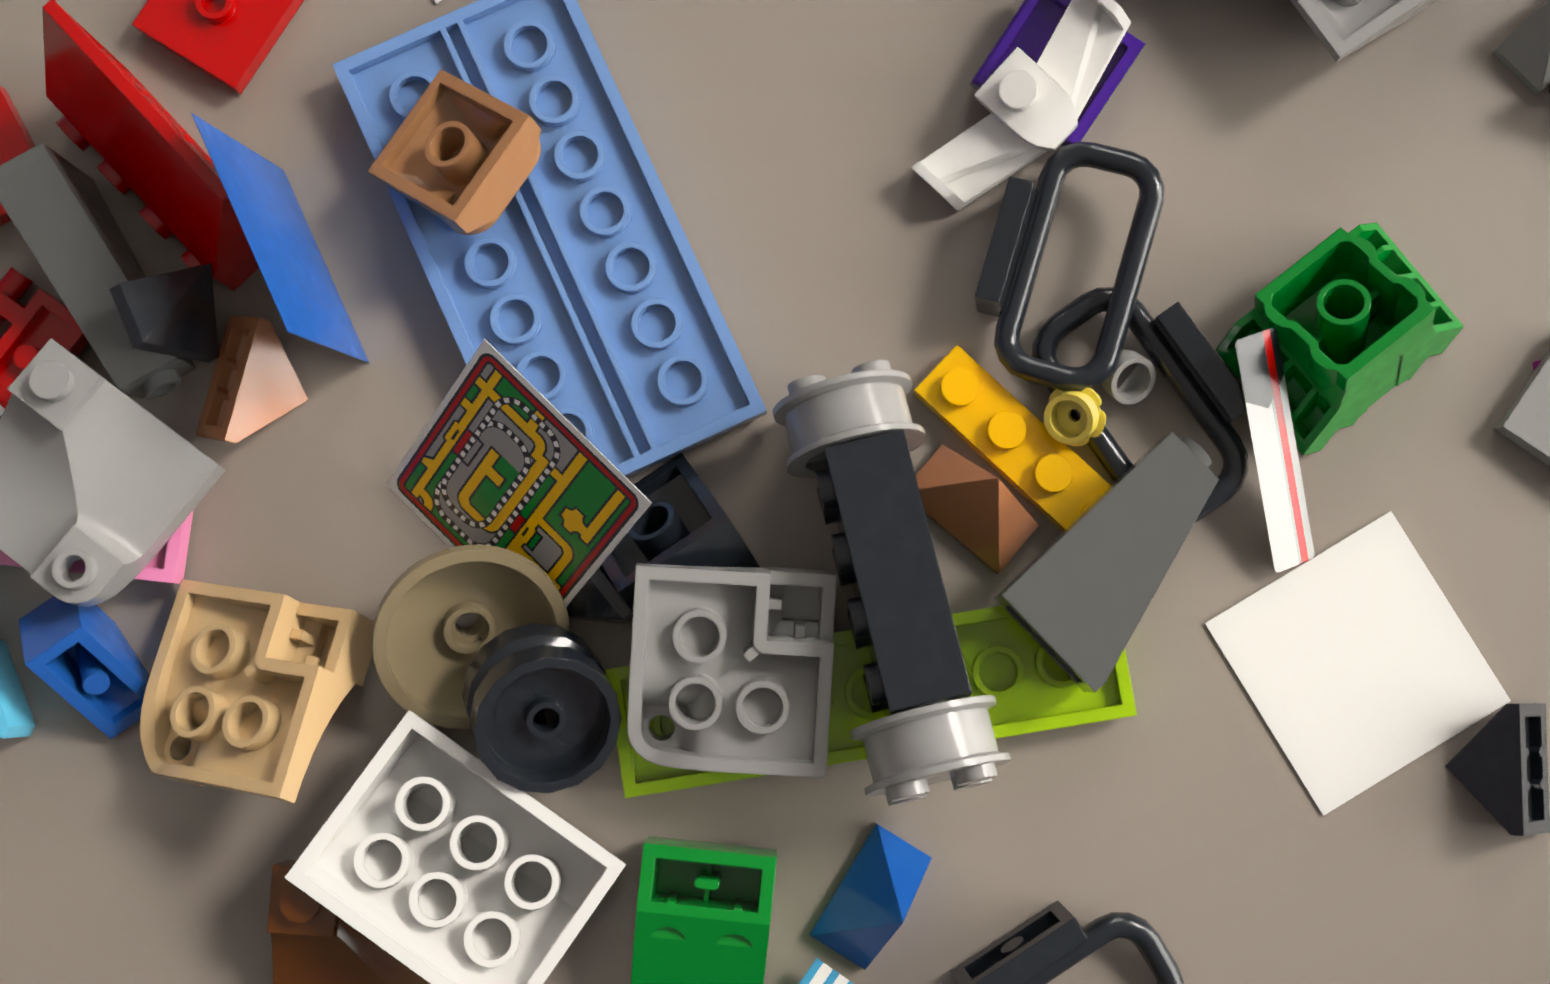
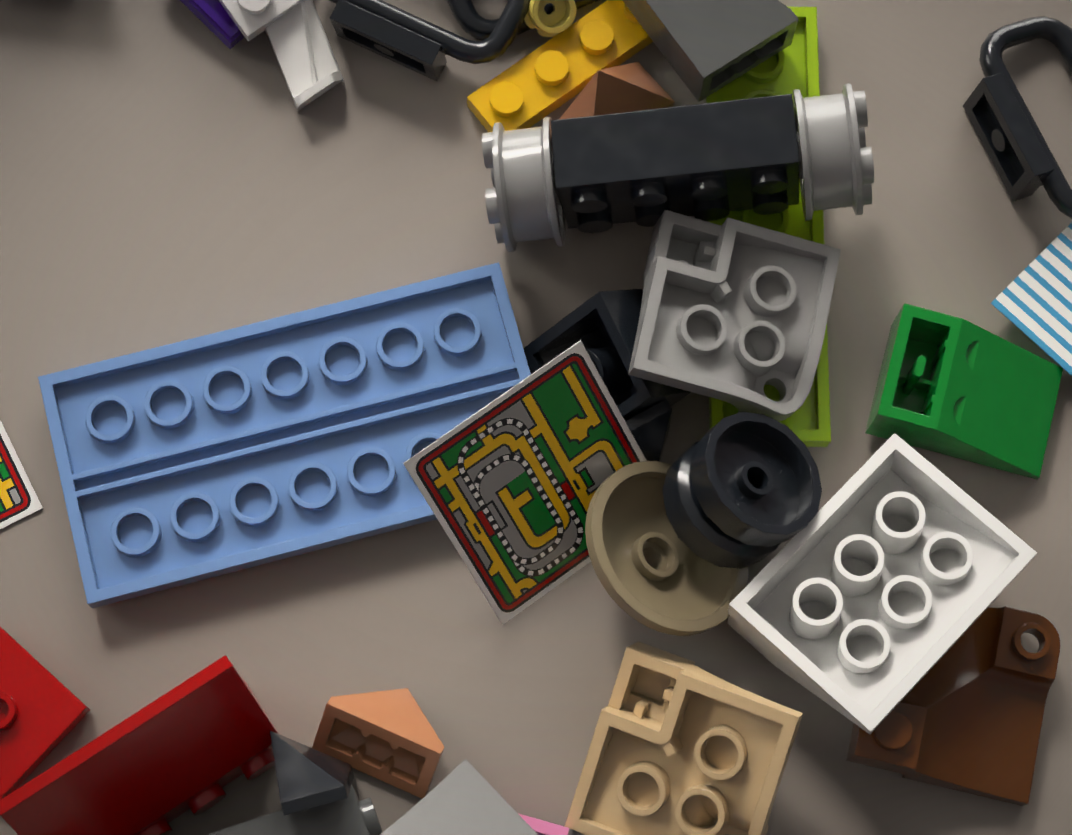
camera: 85 degrees left, 10 degrees down
(282, 244) = (273, 644): sticker -> none
(460, 154) = (208, 485): medium nougat slope -> none
(872, 897) = (945, 251): blue slope -> none

